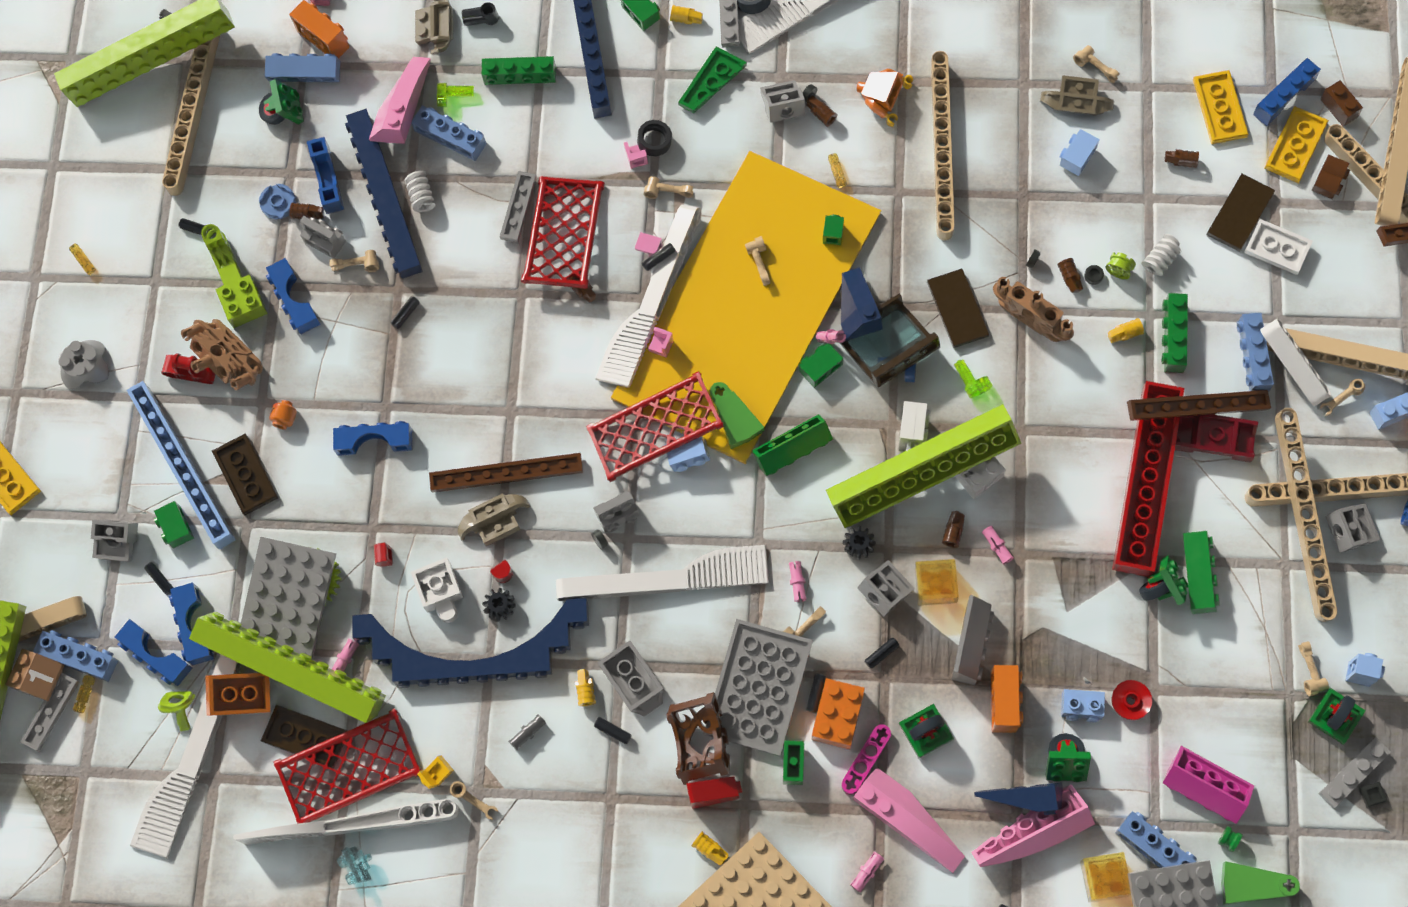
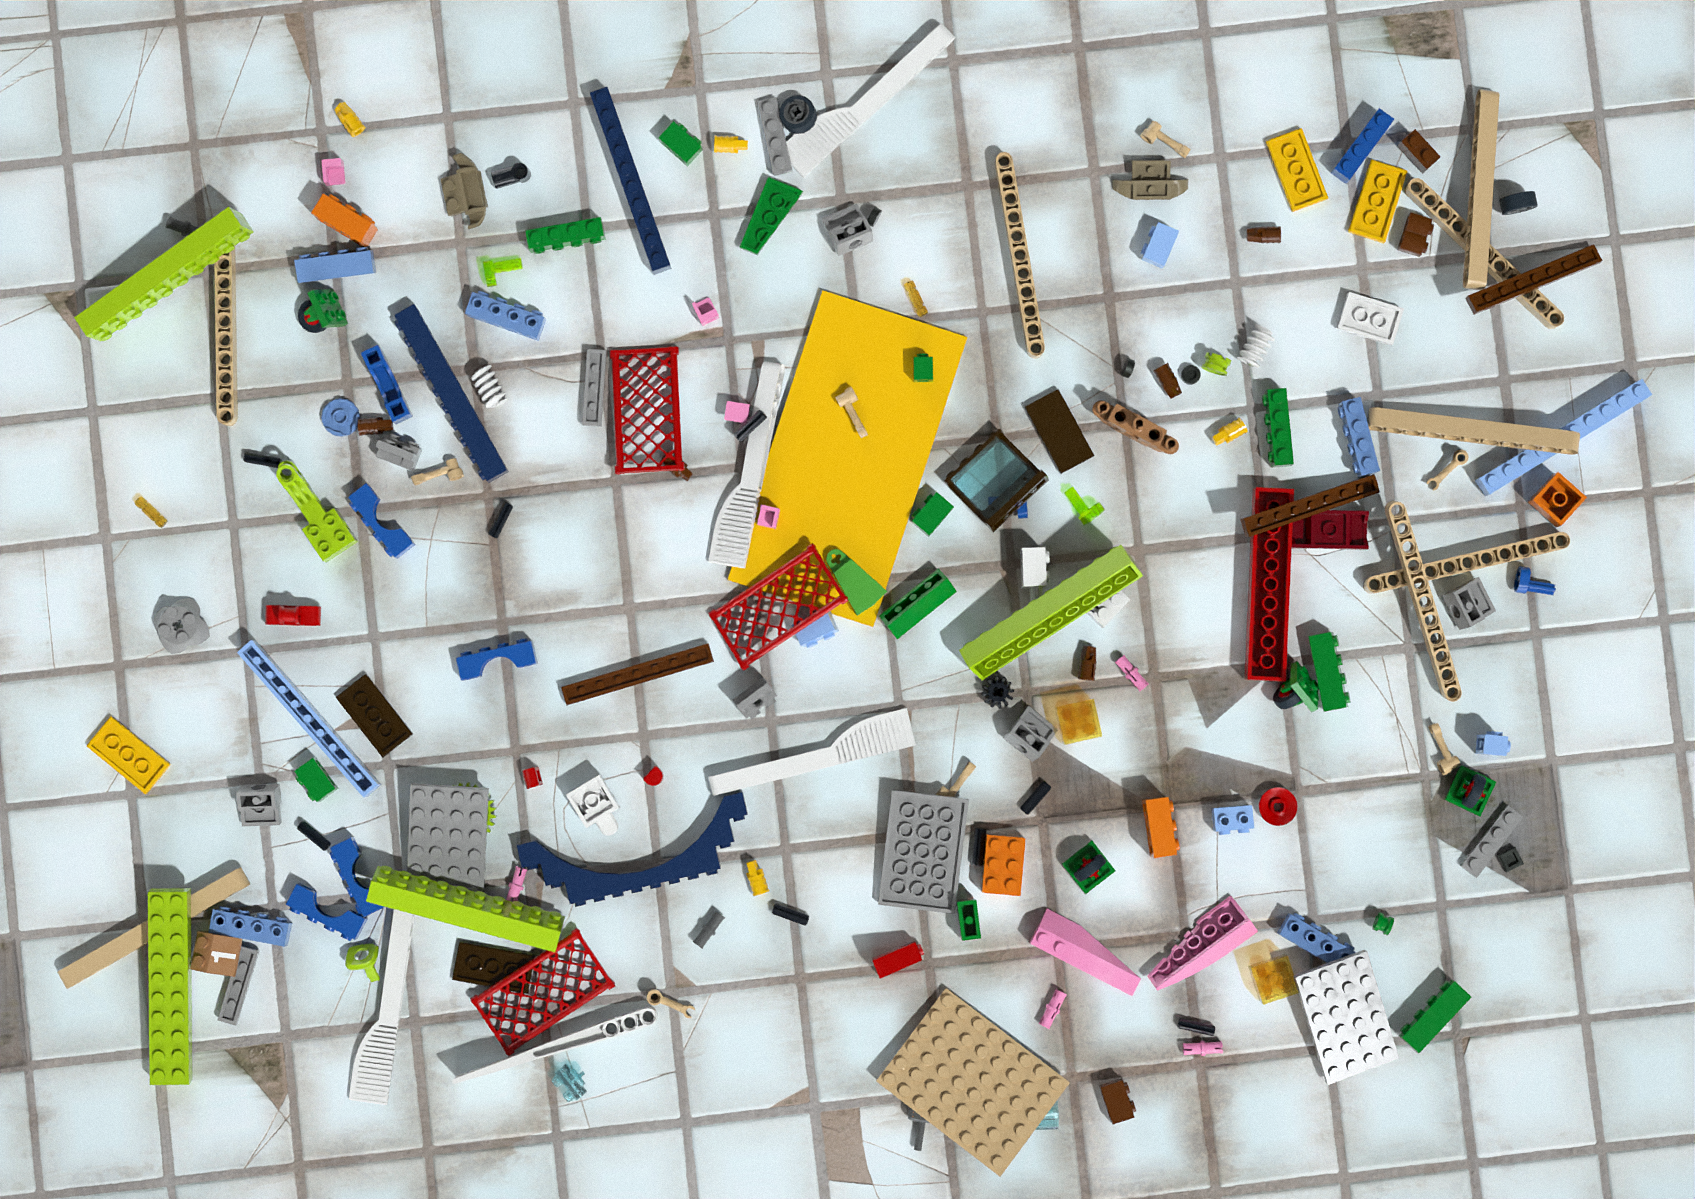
camera: 20 degrees left, 15 degrees up
(84, 694) = (267, 962): clear yellow axle -> none
(222, 353) = (321, 585): medium nougat piece -> none
(237, 694) = (421, 943): orange brick -> none
(283, 414) = (400, 649): orange head -> none
(399, 107) = (448, 295): bright pink wedge -> none
(435, 772) = (628, 983): yellow bracket -> none
(493, 518) = (634, 723): dark tan plate -> none
(499, 611) = (655, 803): black gear -> none
(599, 539) = (743, 728): pearl dark grey tile -> none
(632, 679) = (800, 862): light grey slope -> none
(653, 187) = (730, 345): tan brick -> none
(654, 125) = (719, 277): black tyre -> none
(710, 848) = (902, 1012): yellow hinge -> none
(719, 760) = (898, 928): reddish brown fence -> none
(797, 581) = (943, 739): bright pink pin -> none
(821, 111) = (889, 235): reddish brown hinge -> none
(831, 336) = (938, 485): bright pink pin -> none
(858, 306) = (961, 452): dark blue wedge -> none
(869, 761) = (1032, 901): dark pink beam -> none
(882, 91) = (950, 204): torso -> none
(972, 640) = (1120, 774): light grey slope -> none
(1035, 798) = (1201, 917): dark blue wedge -> none
(1067, 759) = (1224, 873): green plate -> none
(1208, 785) = (1358, 875): dark pink slope -> none
(1240, 212) = (1329, 285): dark brown tile -> none
(1251, 884) = (1406, 962): bright green piece -> none
(1295, 362) = (1399, 444): white beam -> none

